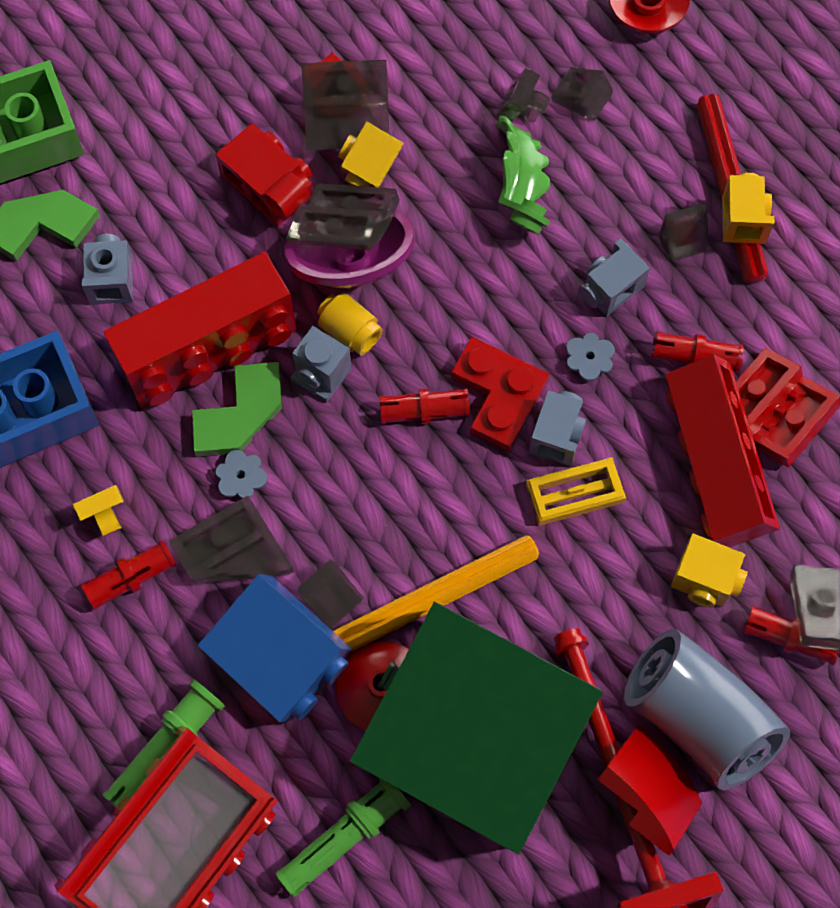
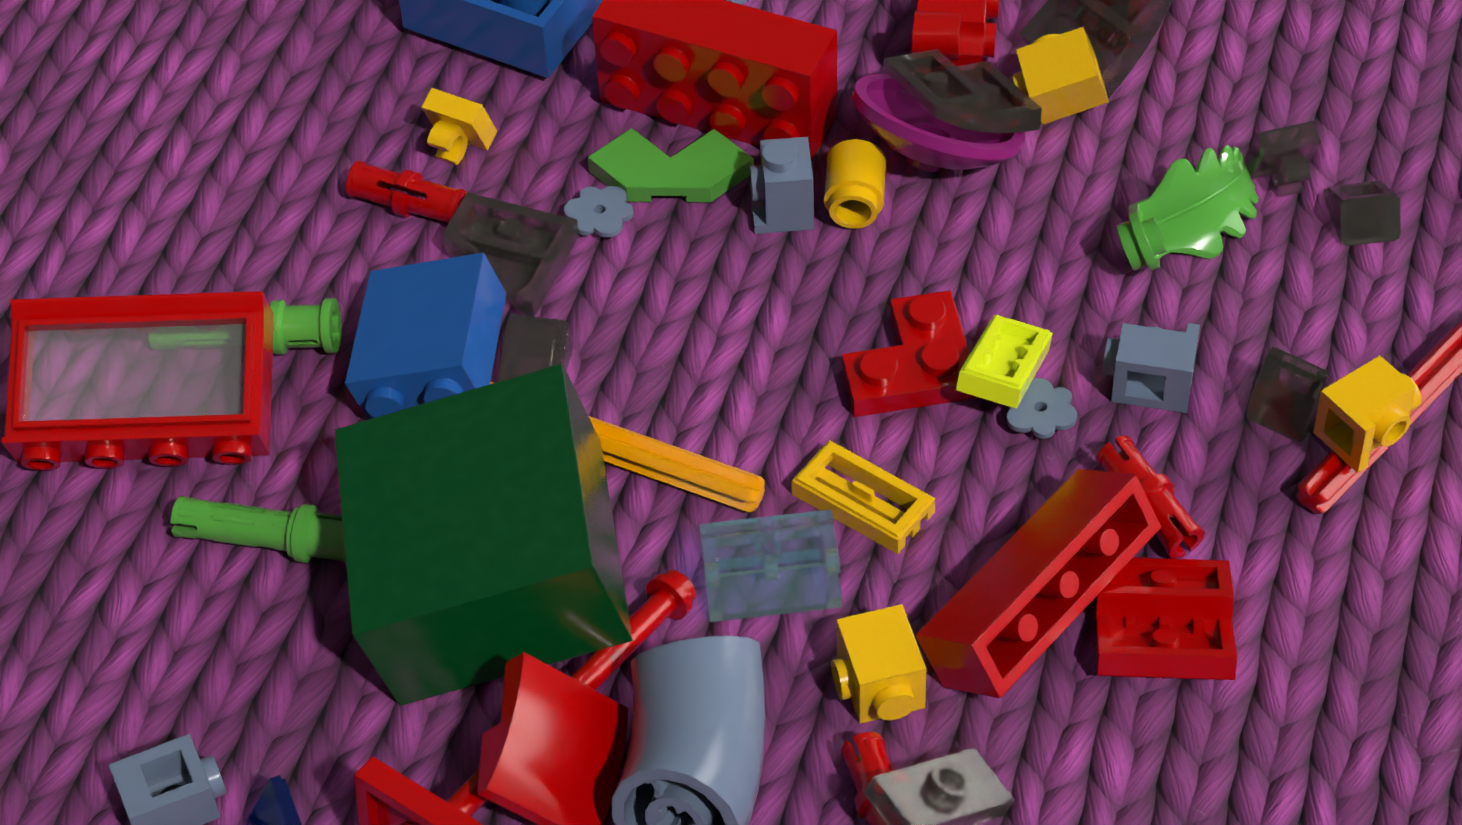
camera: 55 degrees right, 20 degrees down
(424, 406) = (828, 304): red pin -> none
(550, 350) = (1004, 361): none -> neon yellow plate
(558, 428) = (918, 422): sand blue brick -> none
(595, 578) = (770, 565): none -> clear light blue hinge

